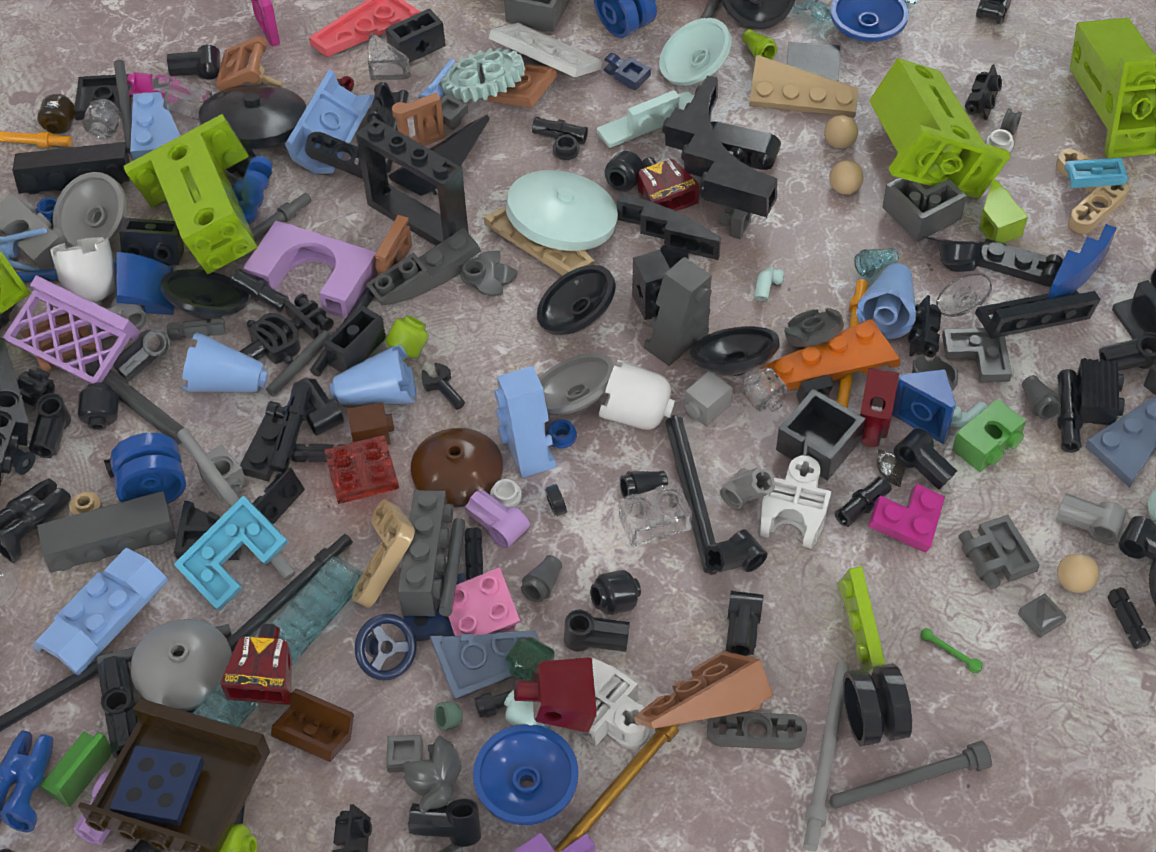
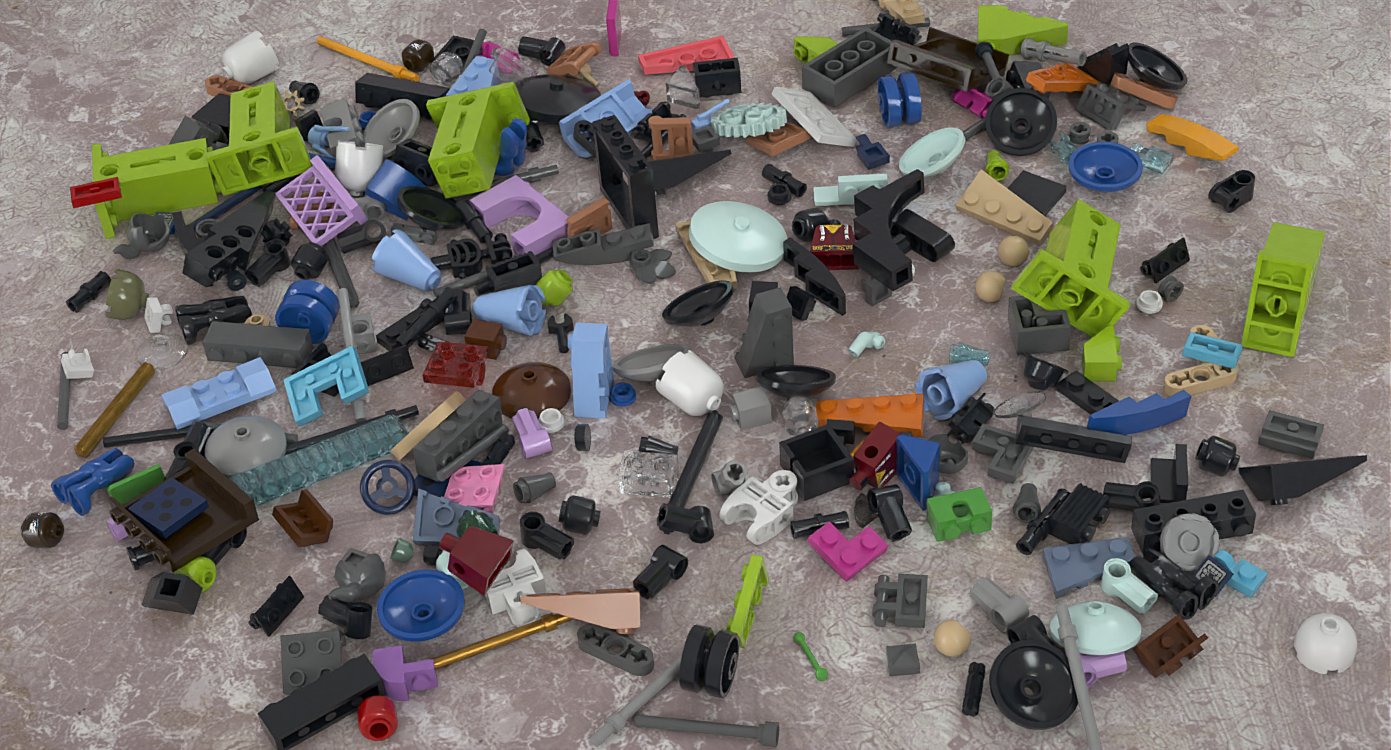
camera: 30 degrees right, 10 degrees down
(259, 669) = (287, 464): dark red torso -> none
(814, 327) = (874, 386): dark grey tile -> none

